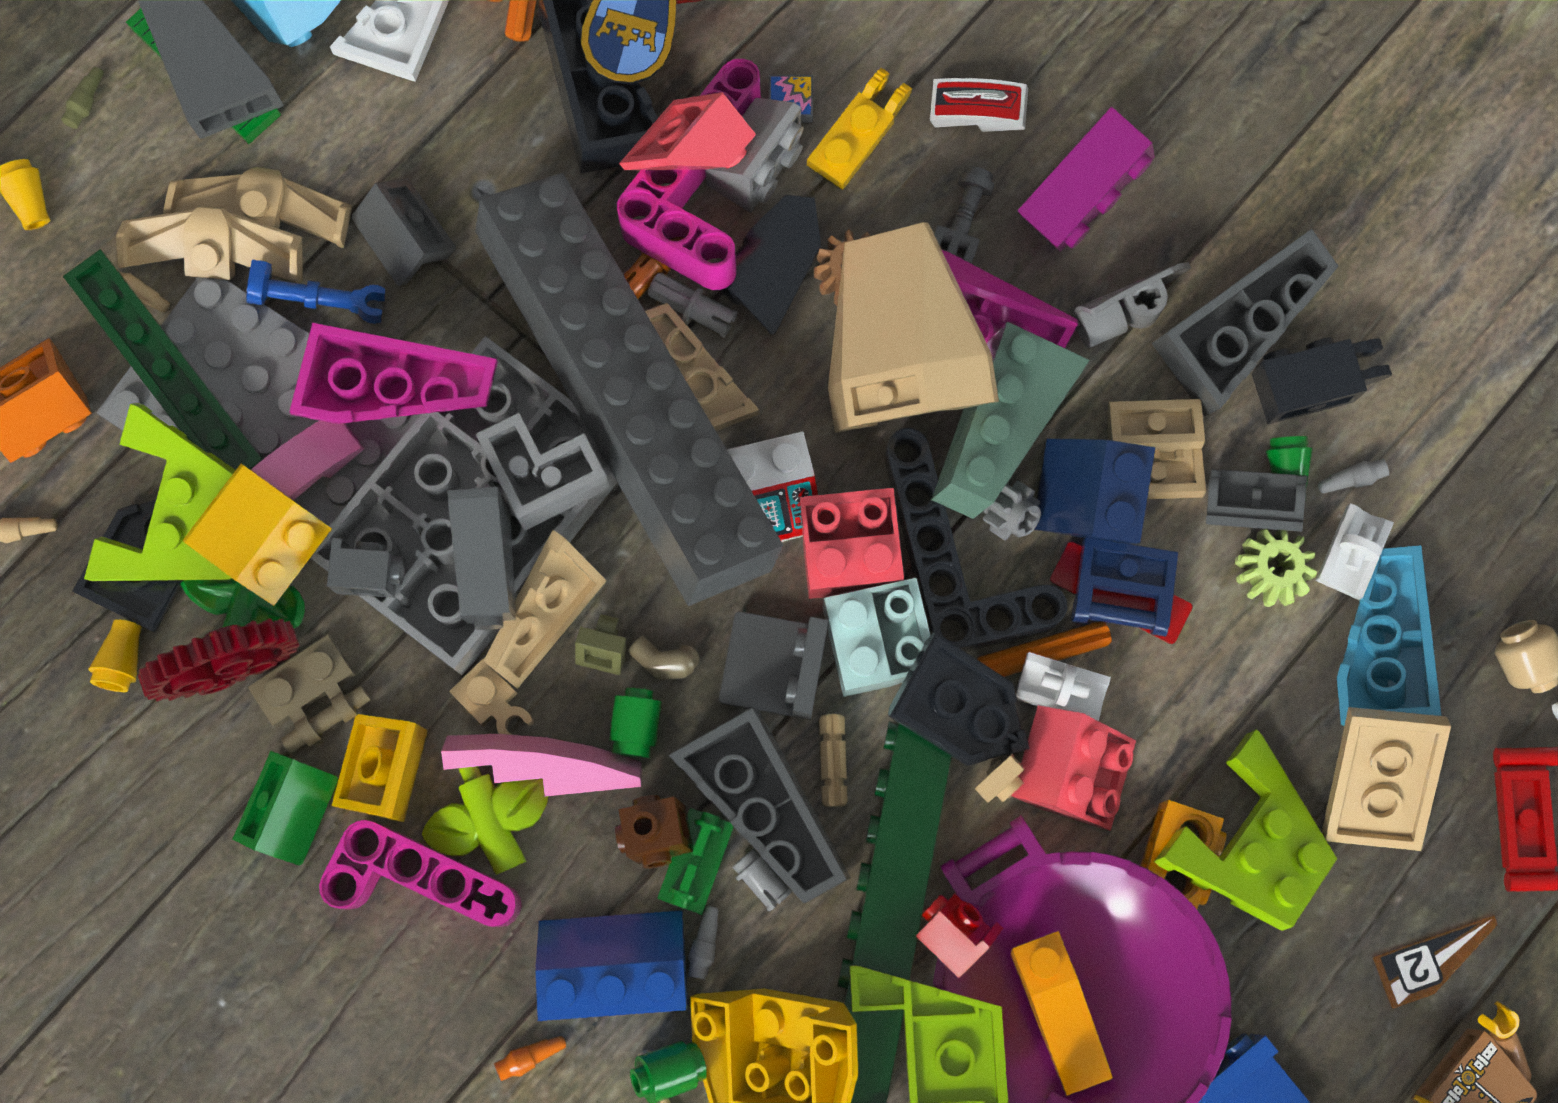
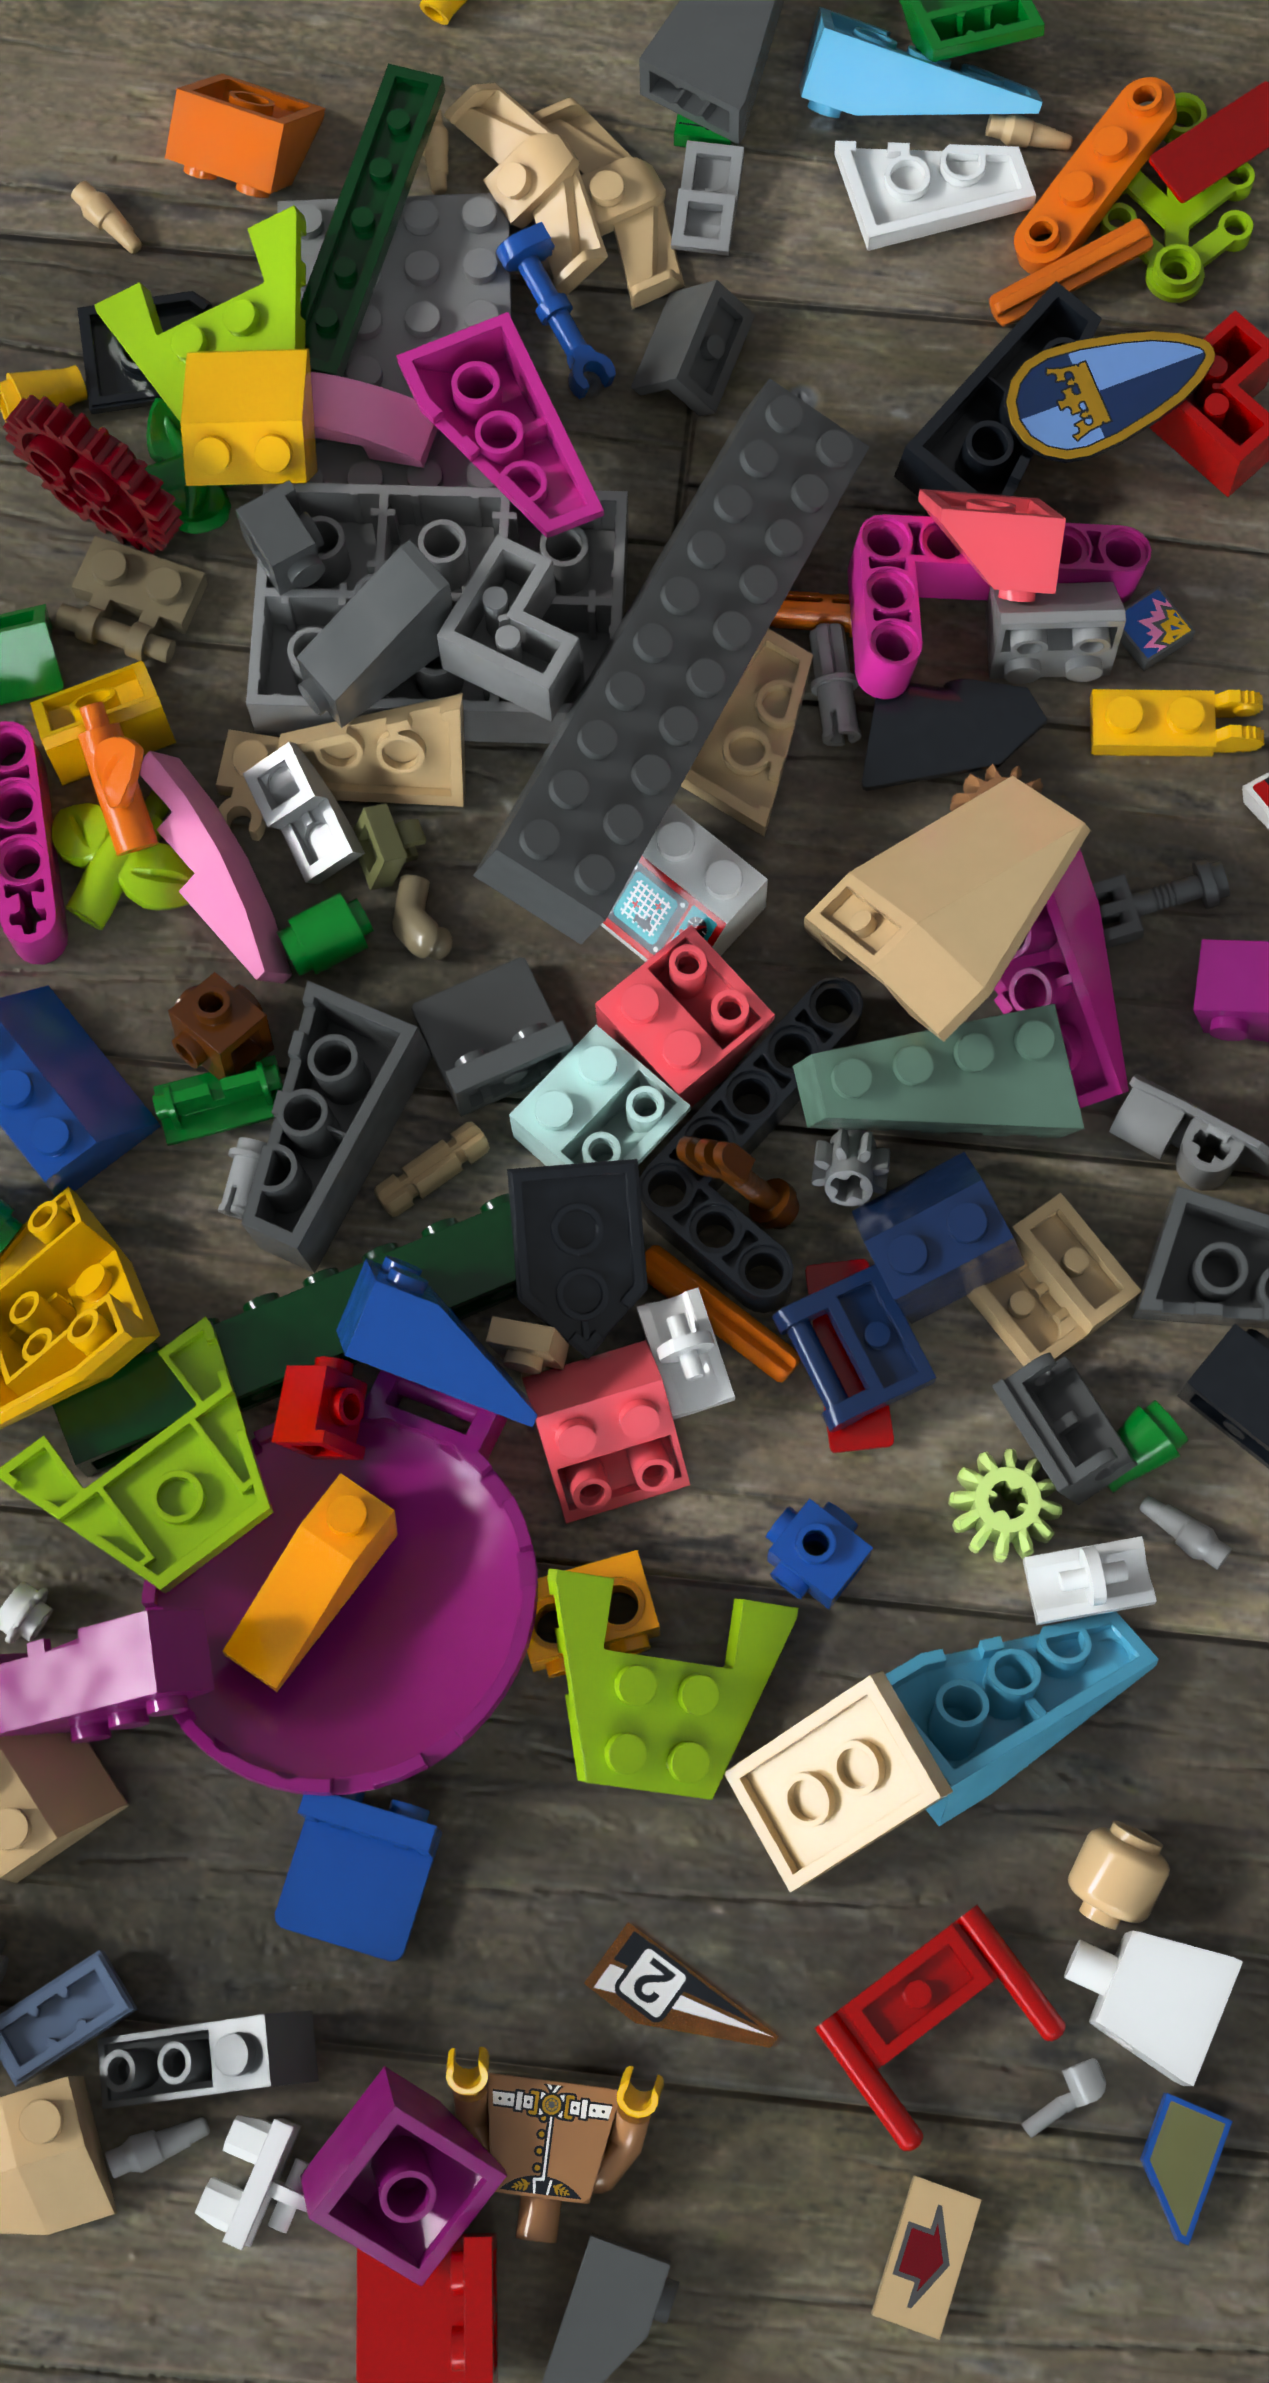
camera: 60 degrees right, 5 degrees down
(305, 149) = (708, 198): none -> light grey slope
(448, 784) = (114, 771): none -> orange plant
(547, 680) = (302, 806): none -> light grey slope
(703, 948) = (131, 1171): light grey piece -> none
(963, 846) = (412, 1333): none -> blue slope
(996, 572) = (771, 1201): none -> reddish brown hinge
(1250, 692) = (823, 1575): none -> blue brick

